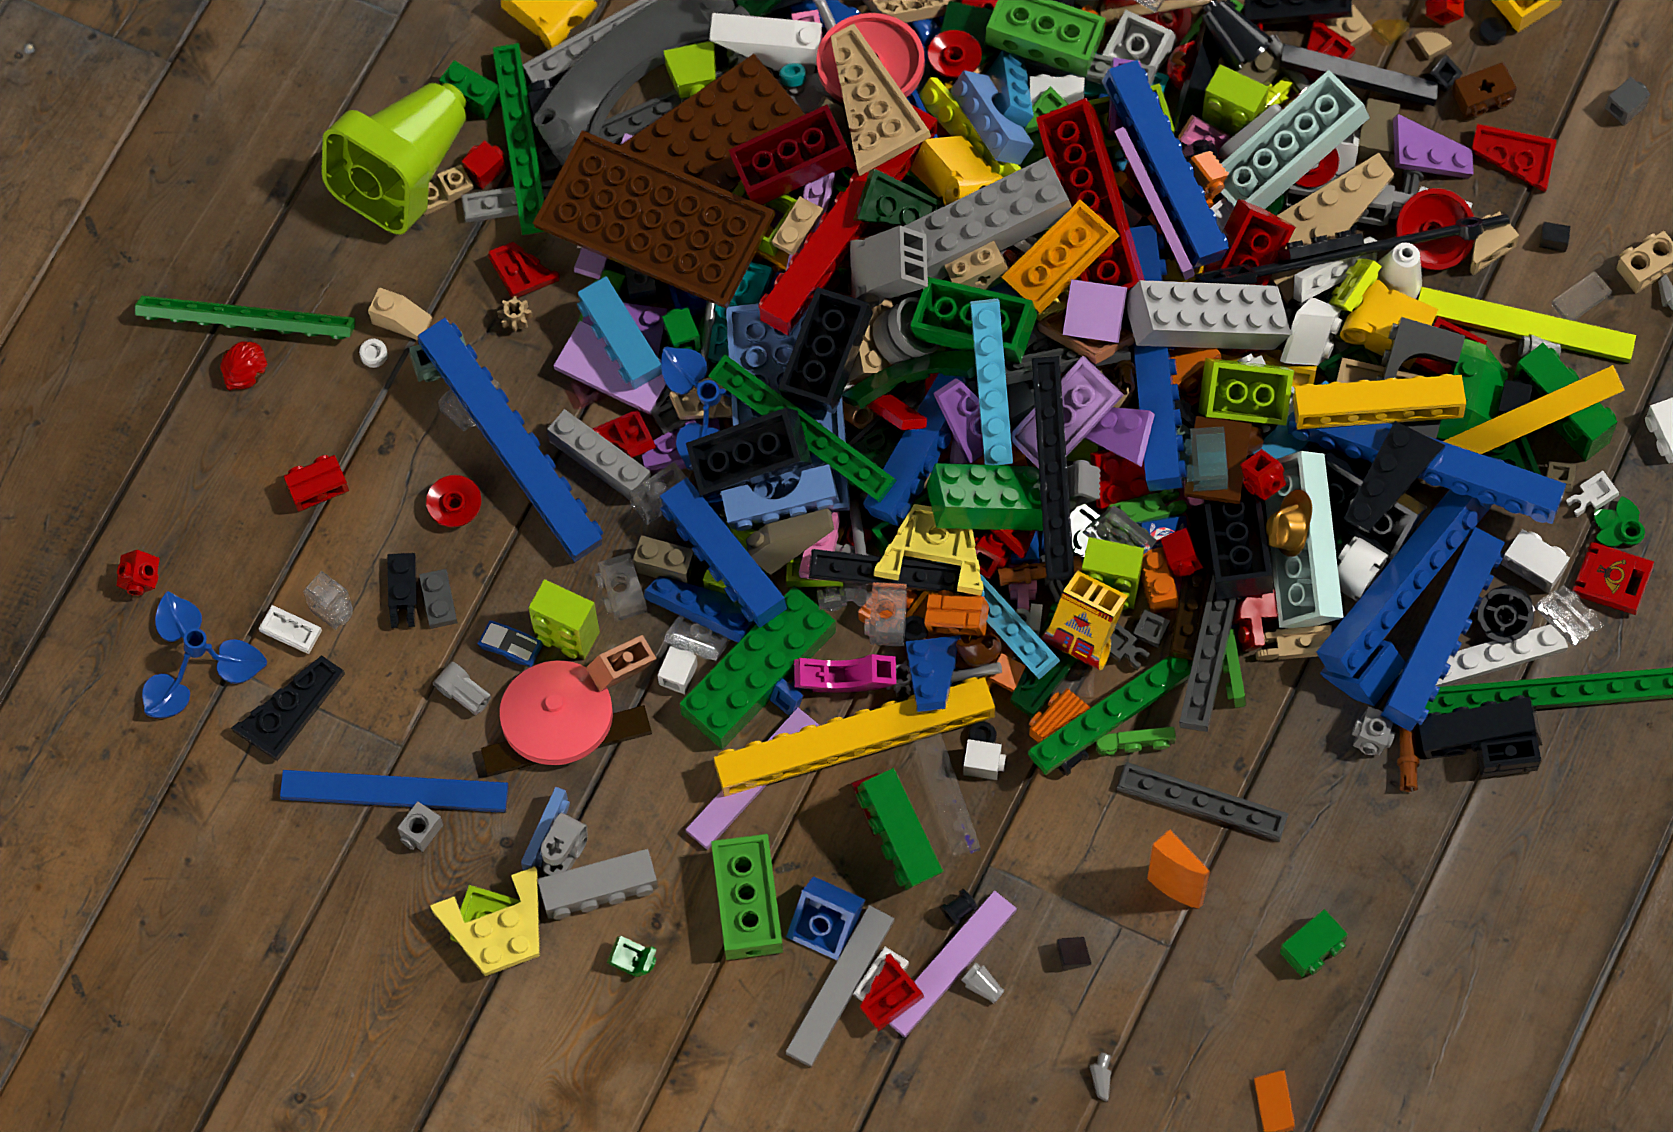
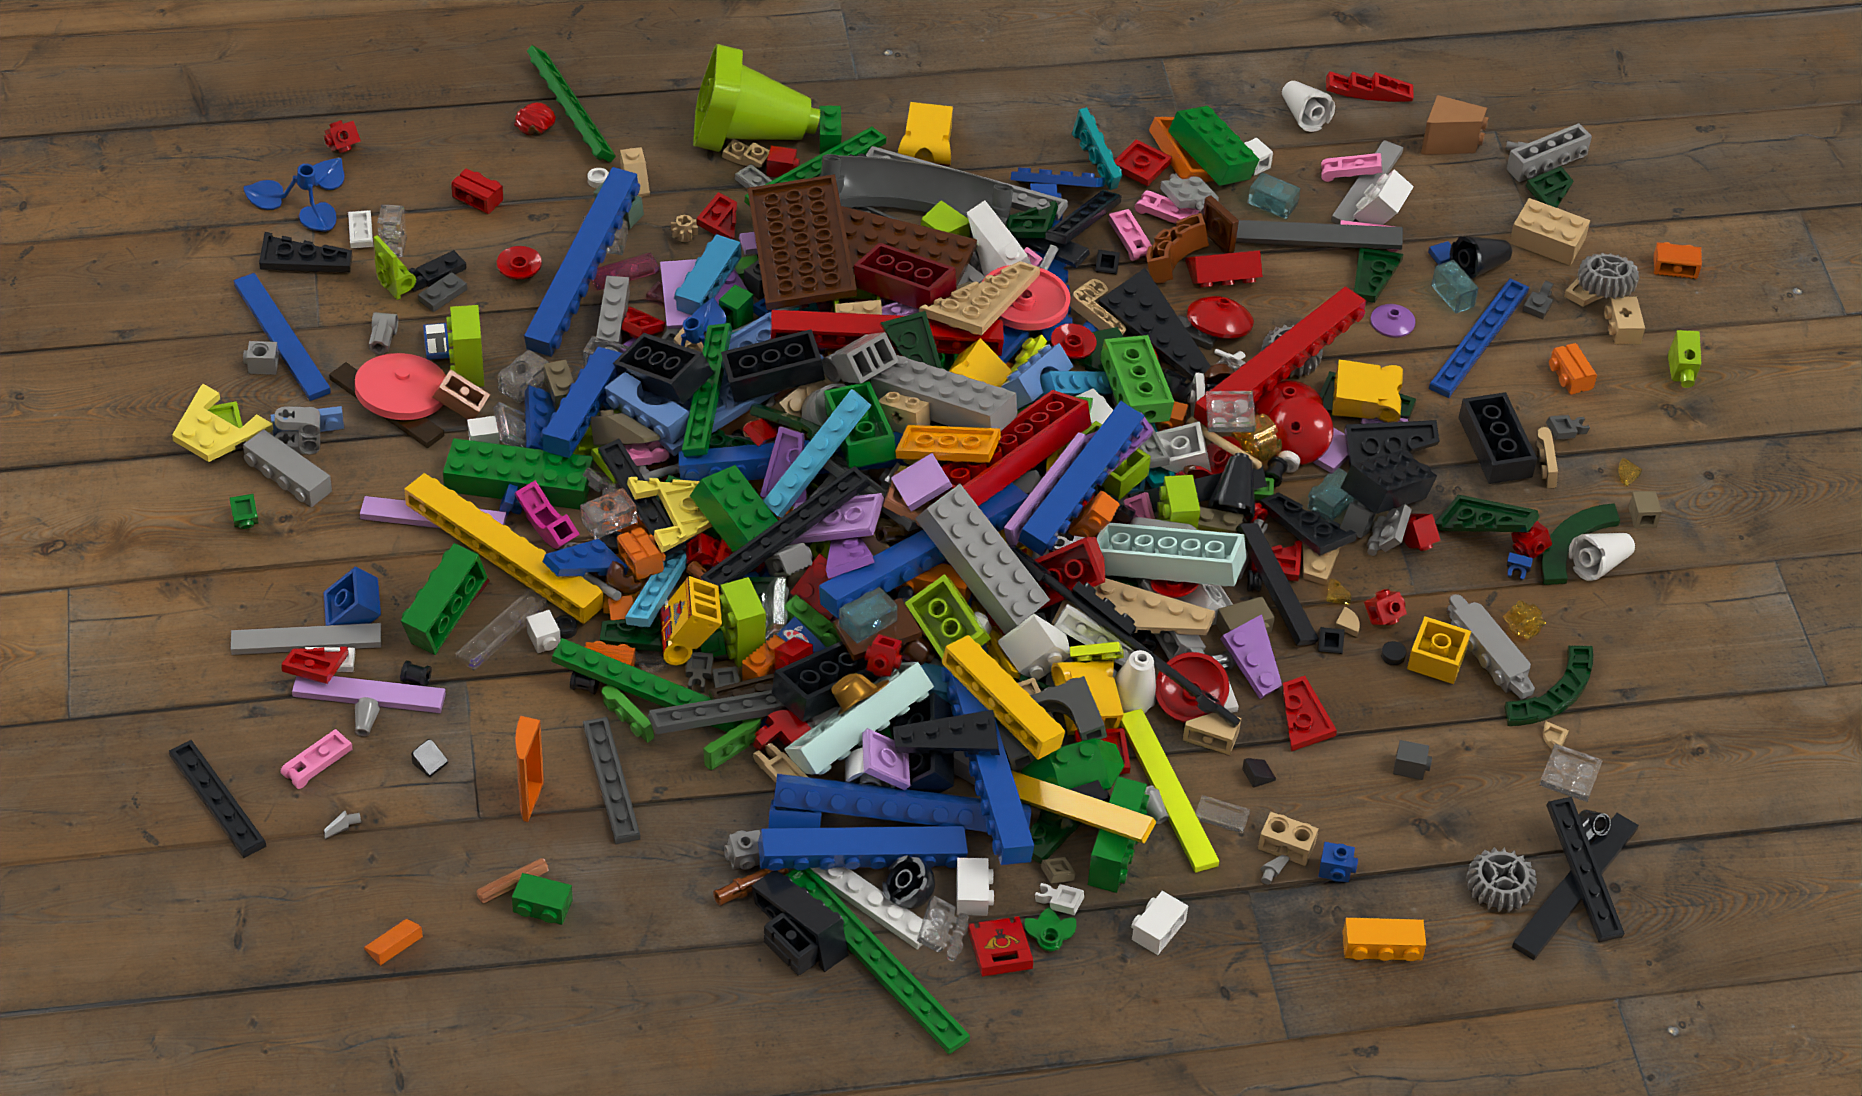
camera: 50 degrees right, 20 degrees down
(389, 633) = (391, 271): none -> lime piece
(533, 398) = (633, 268): none -> clear pink tile
(762, 908) = (333, 548): bright green brick -> none
(793, 75) = (980, 269): teal tile -> none
(1007, 1055) = (316, 758): none -> bright pink plate
(1270, 958) = (510, 880): none -> nougat axle
(1372, 550) = (883, 761): none -> lavender tile
(1484, 90) = (1337, 667): reddish brown brick -> none

